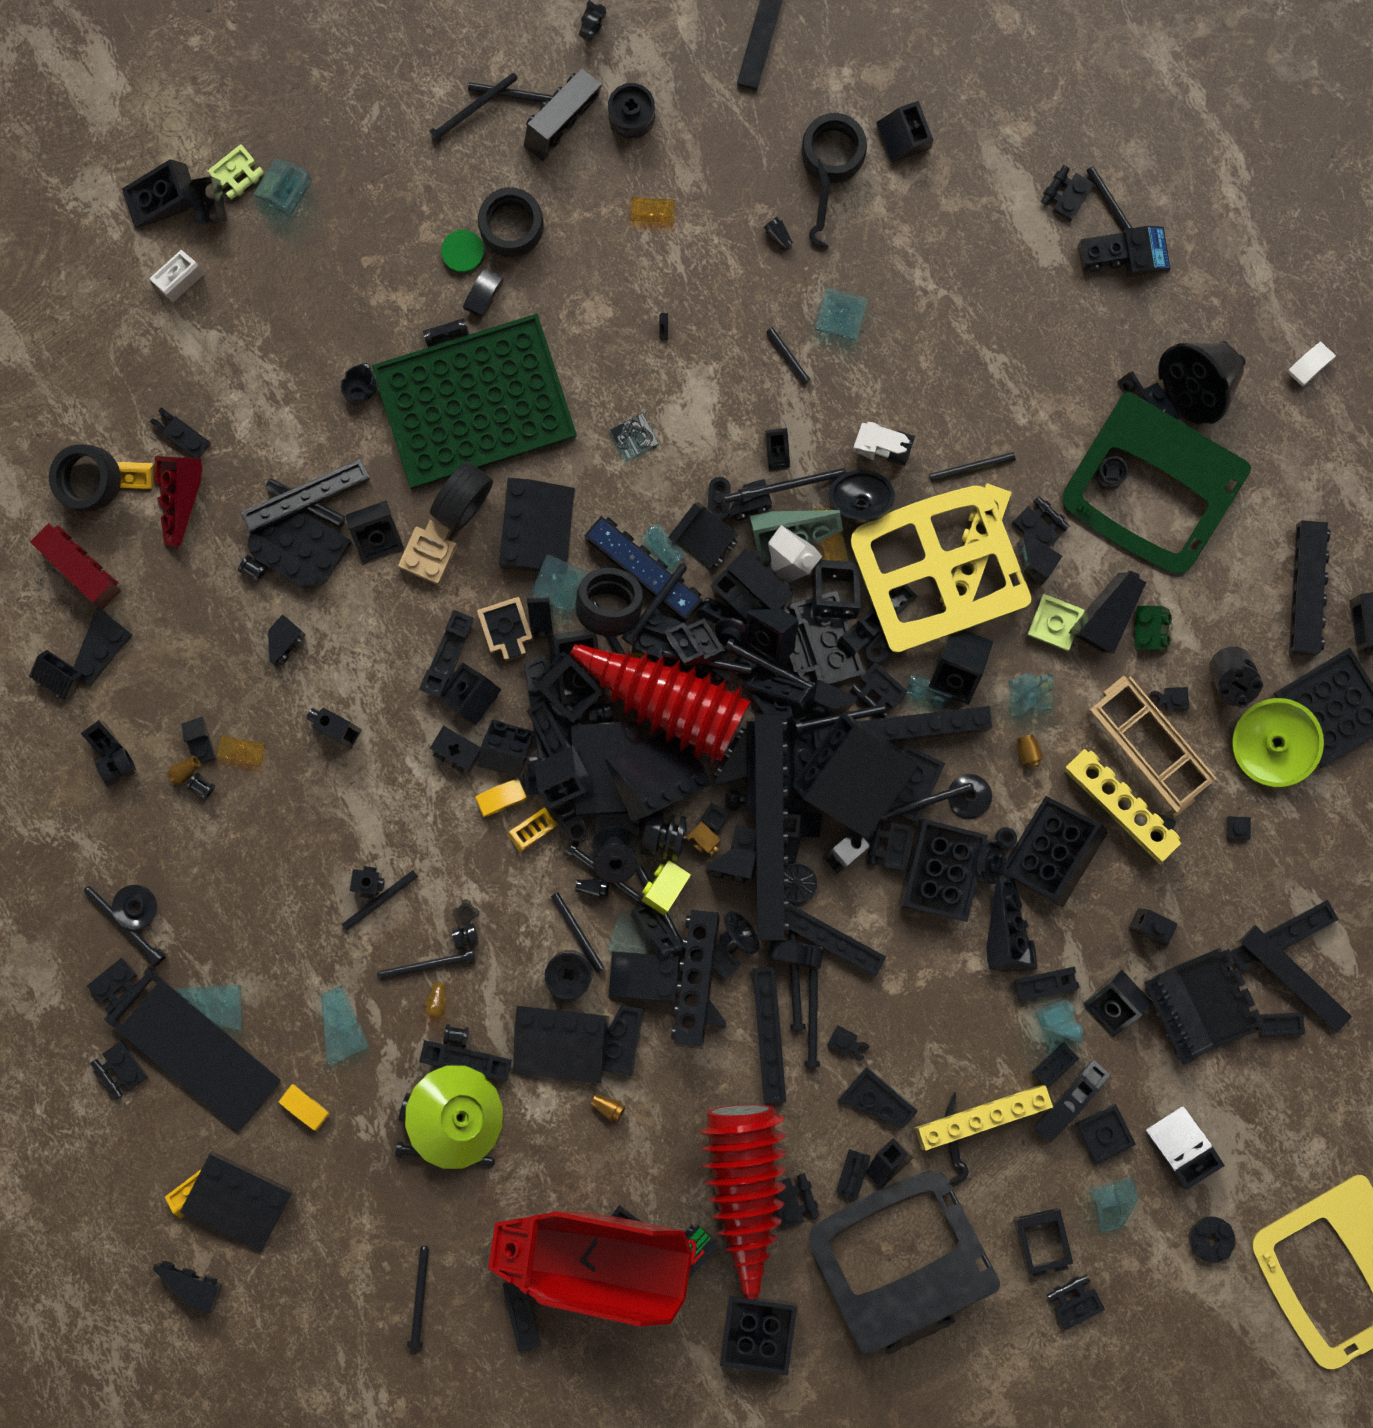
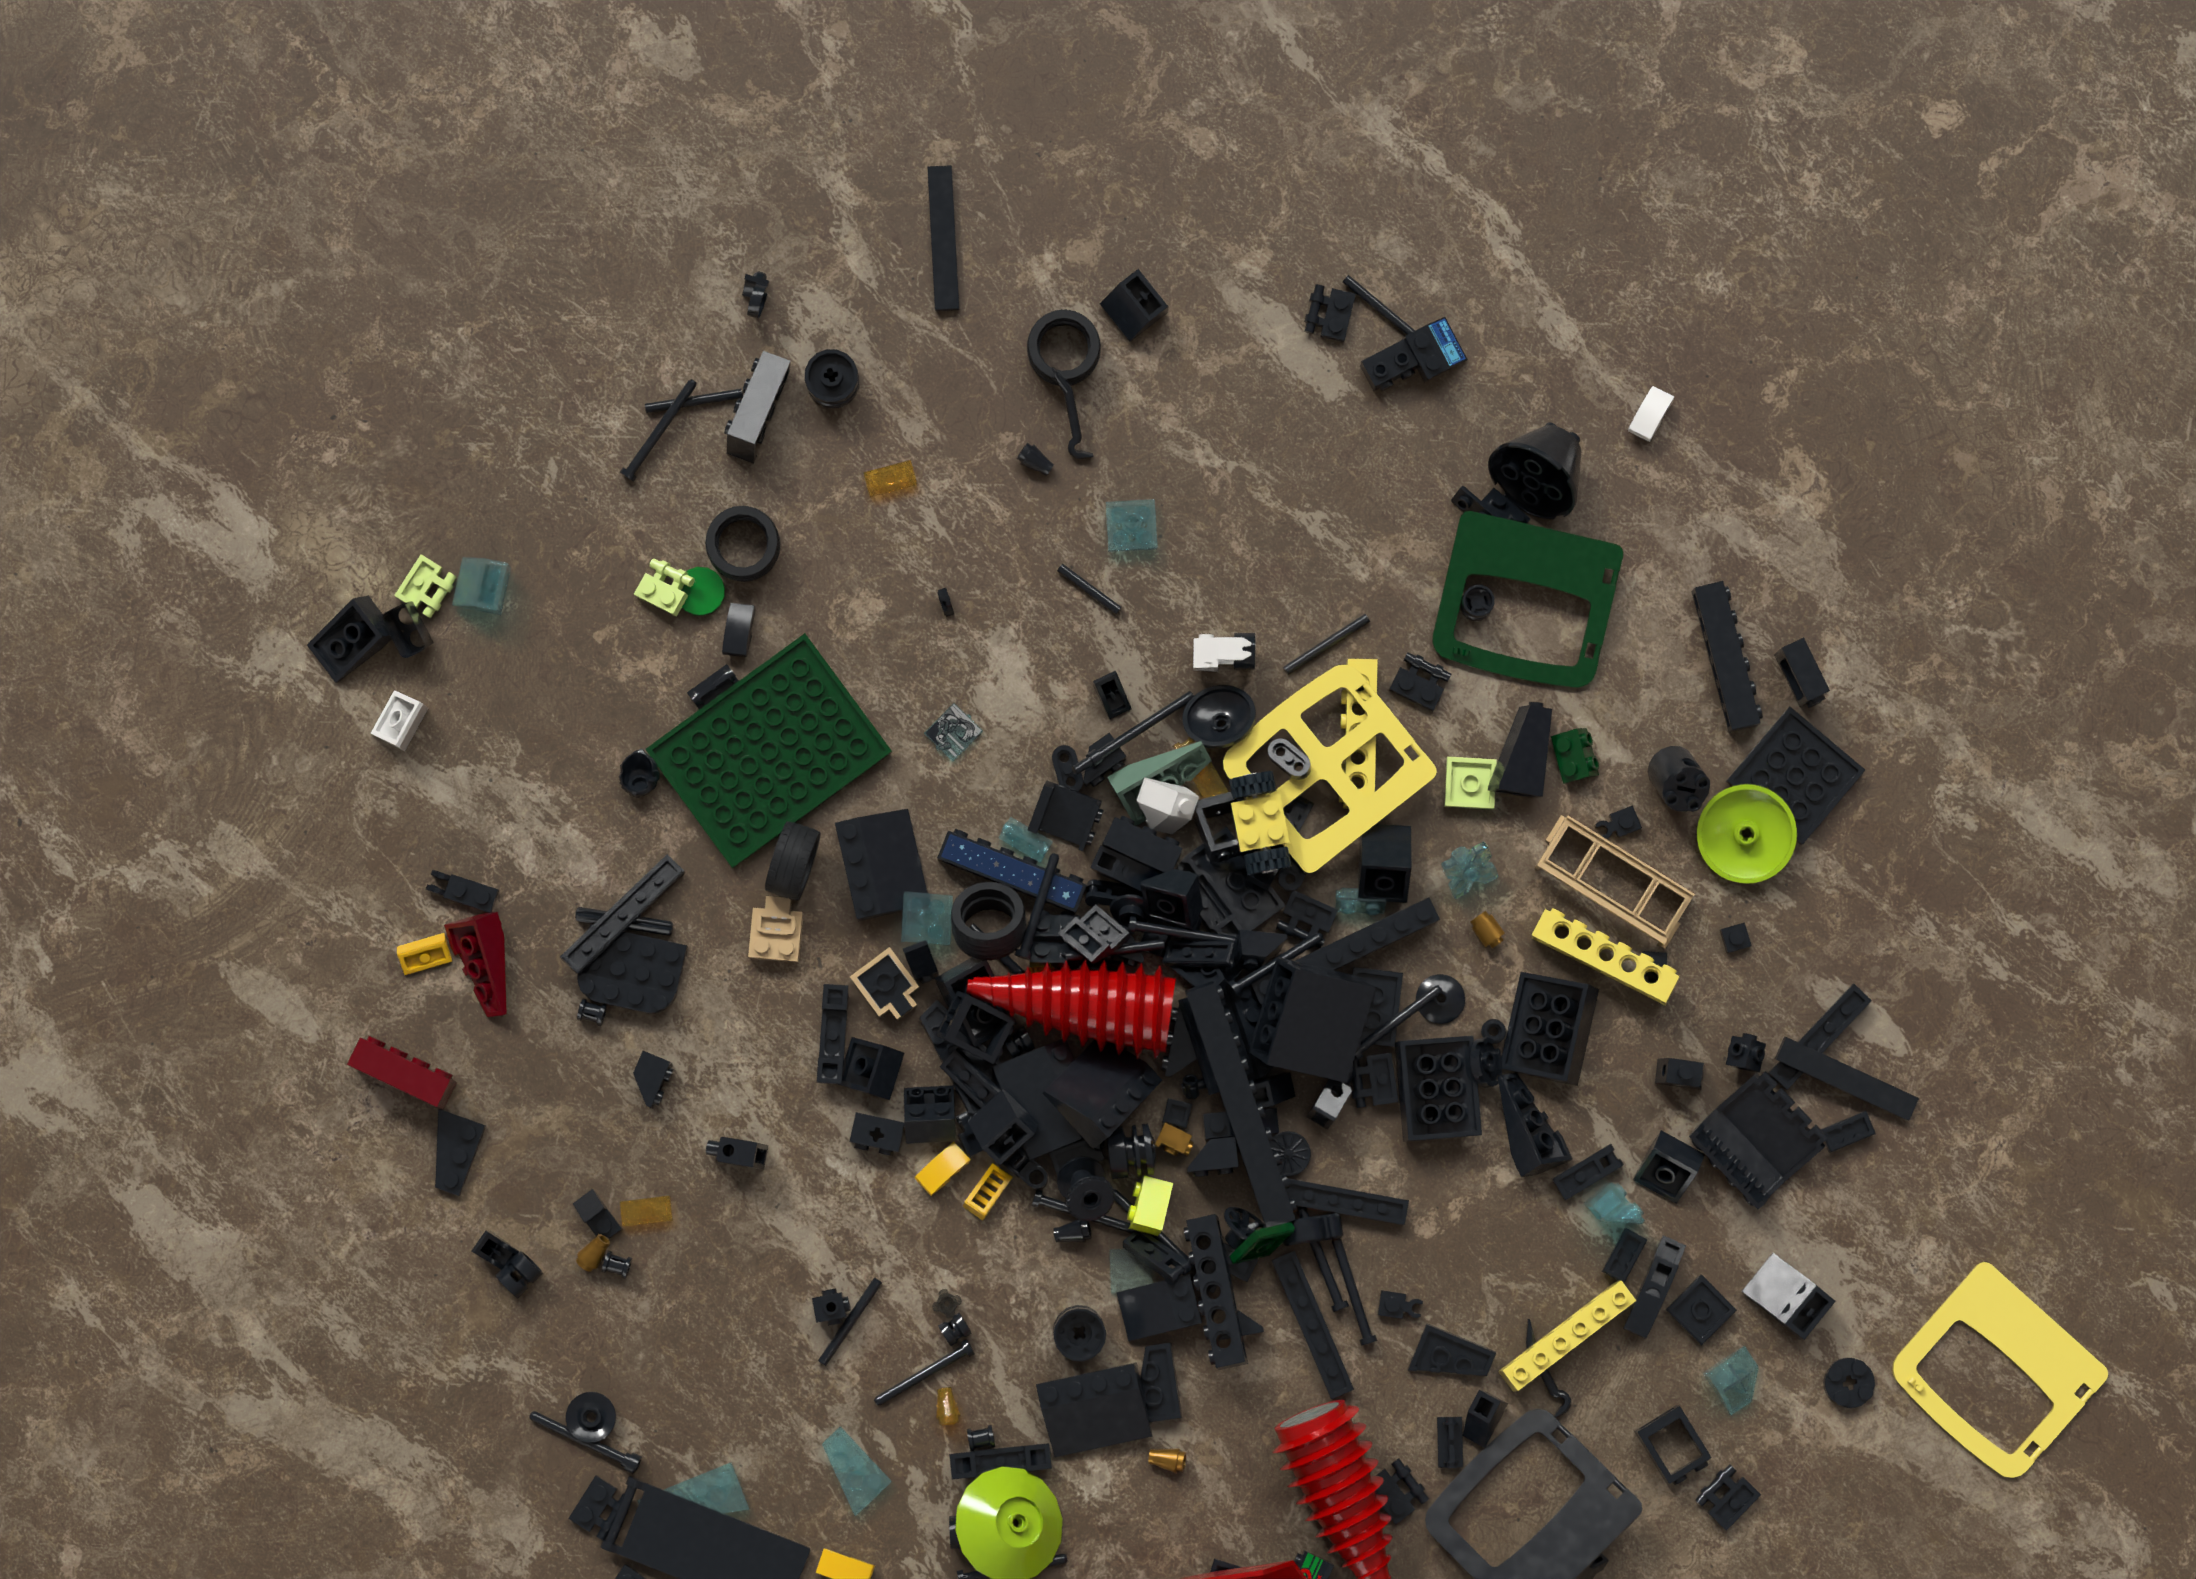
camera: 20 degrees left, 0 degrees up
(55, 675) = (420, 1197): black brick -> none
(60, 477) = (353, 987): black tyre -> none
(374, 531) = (709, 927): black slope -> none
(430, 243) = (661, 594): none -> yellowish green plate
(575, 928) = (1072, 1284): black bar -> none
(740, 950) = (1254, 1246): none -> dark green tile
(866, 594) = (1260, 822): none -> plate
(910, 551) = (1290, 760): none -> plate
(1037, 559) = (1428, 723): black slope -> none
(1216, 928) = (1746, 1053): none -> black brick

